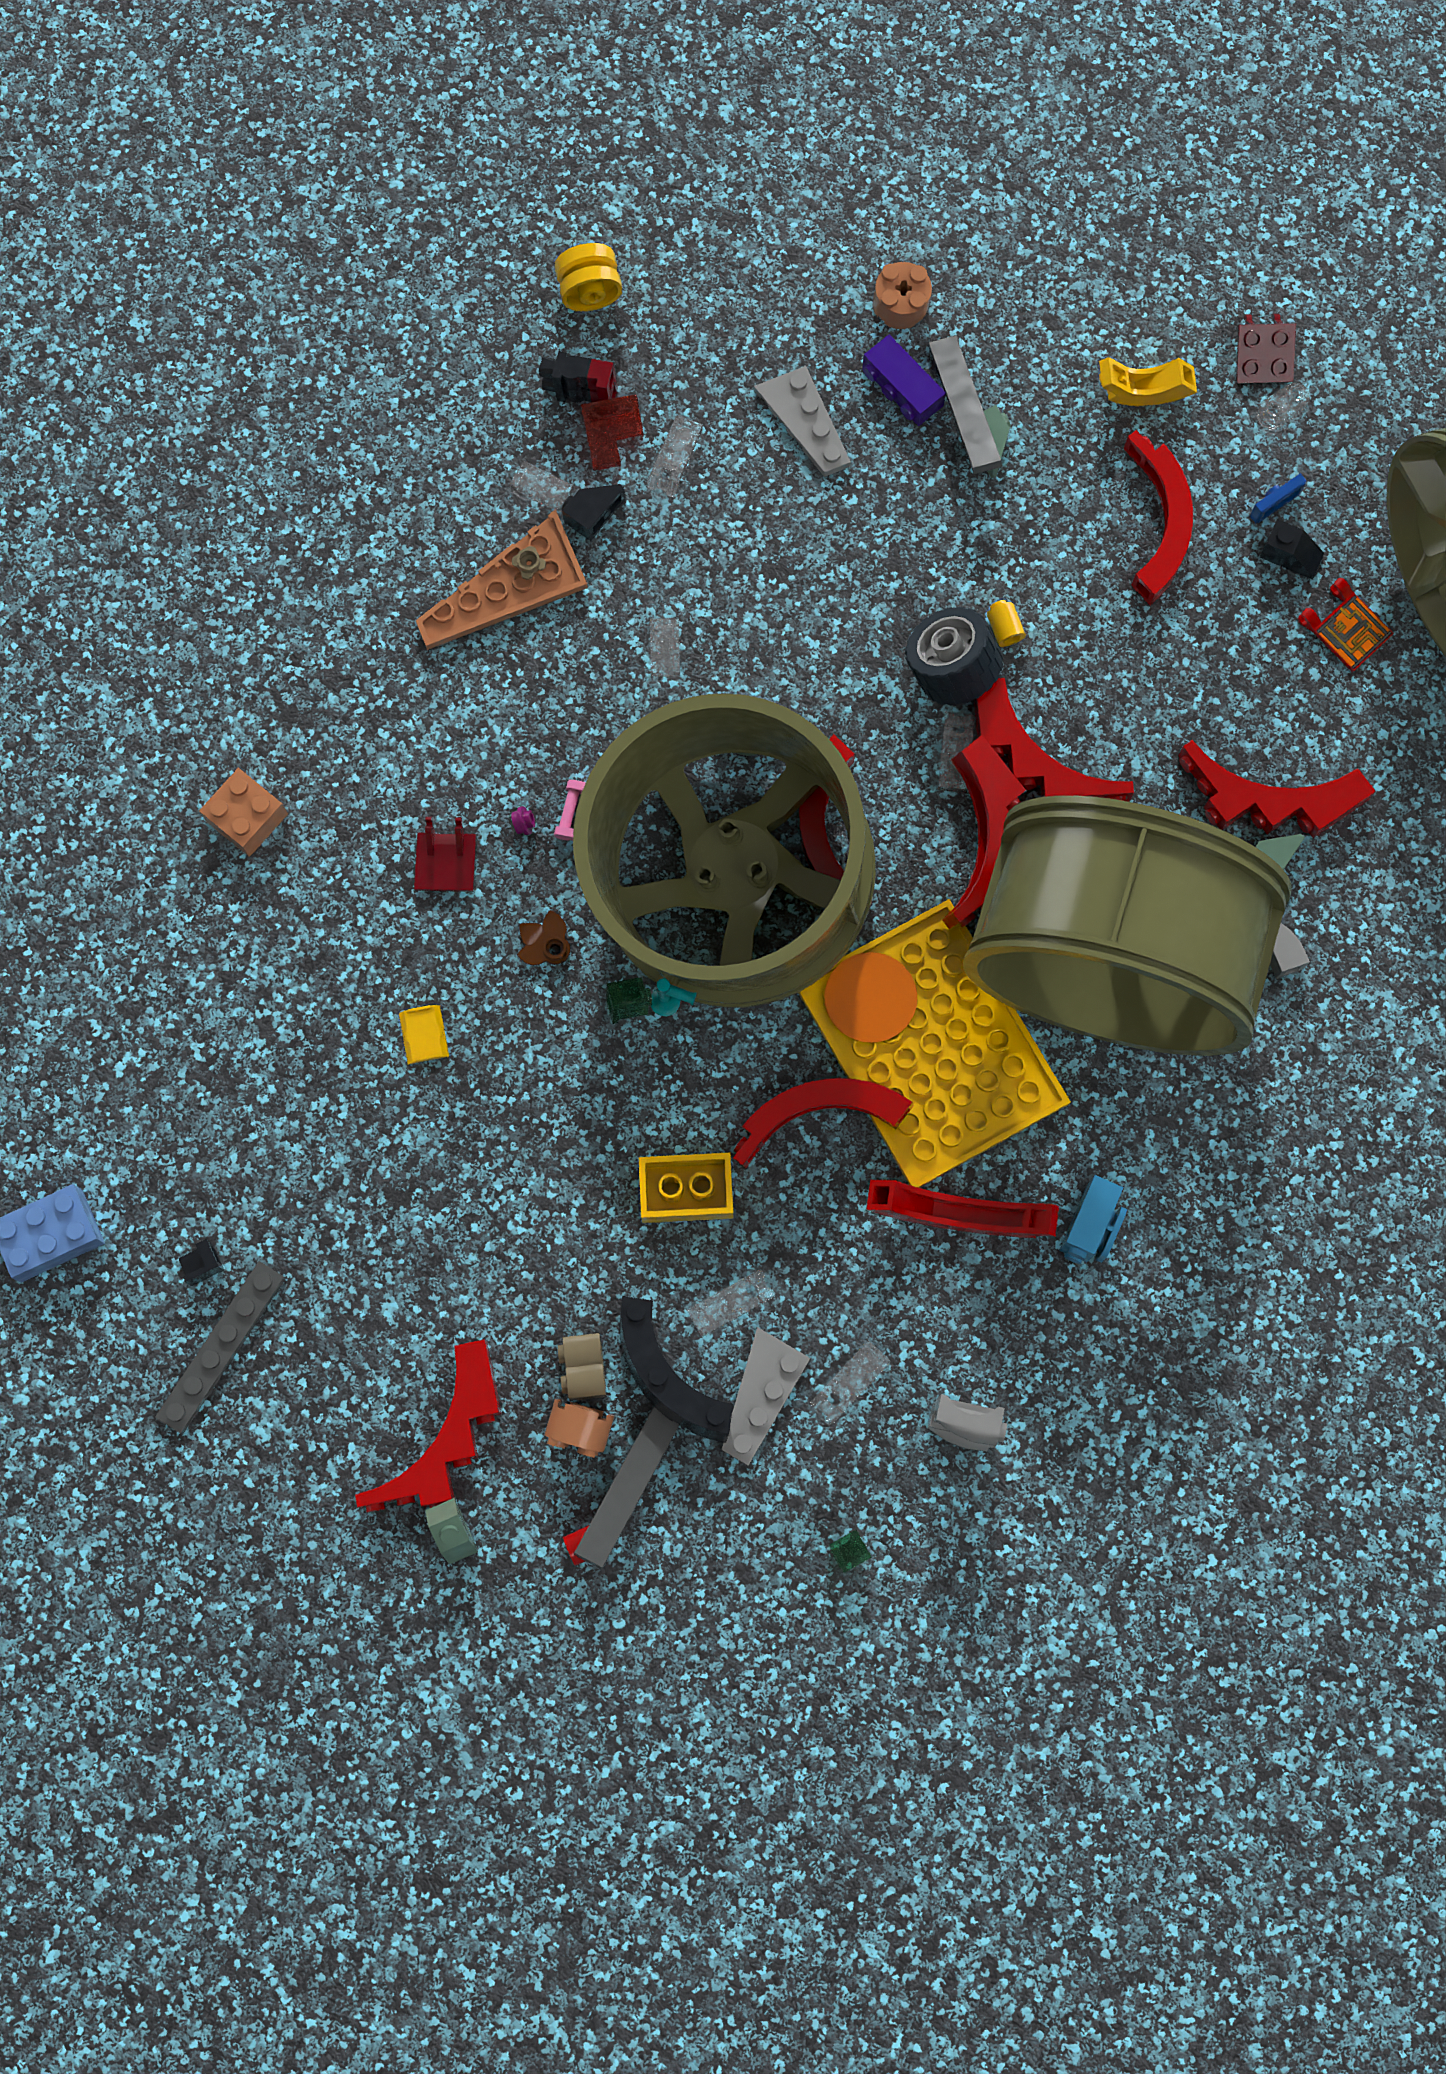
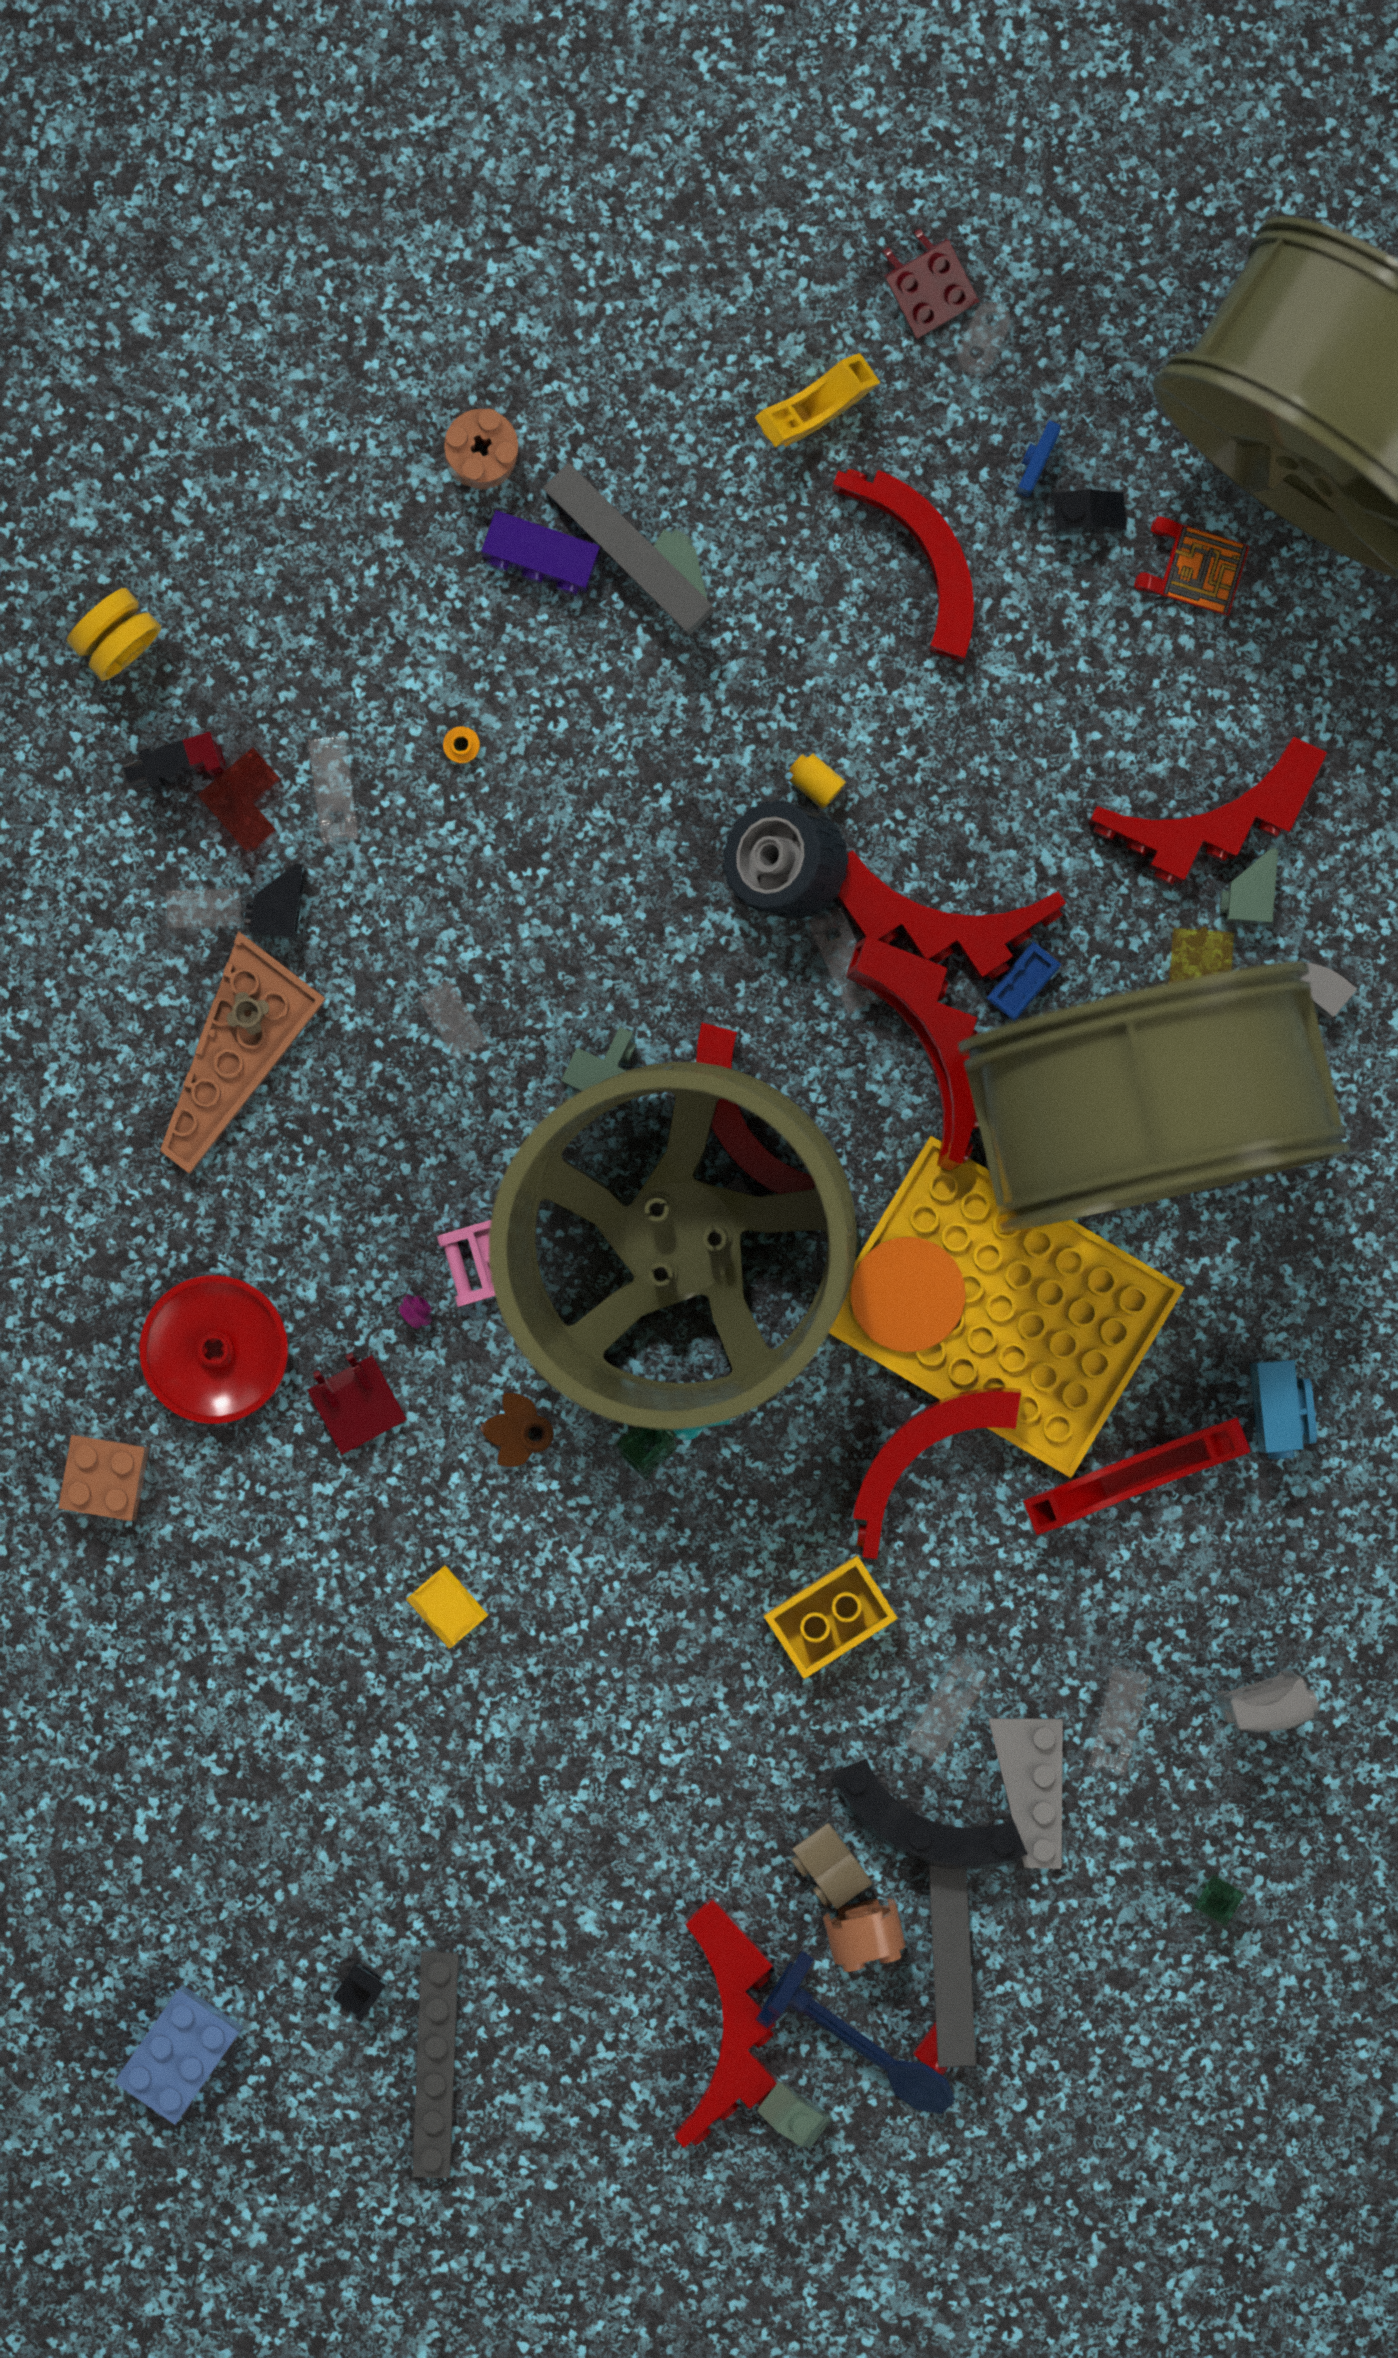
camera: 30 degrees left, 10 degrees up
(370, 768) = (214, 1349): none -> red dish
(550, 1555) = (910, 2081): none -> dark blue piece
(777, 481) = (461, 756): none -> light orange plate
(803, 413) = (447, 653): light grey wing -> none

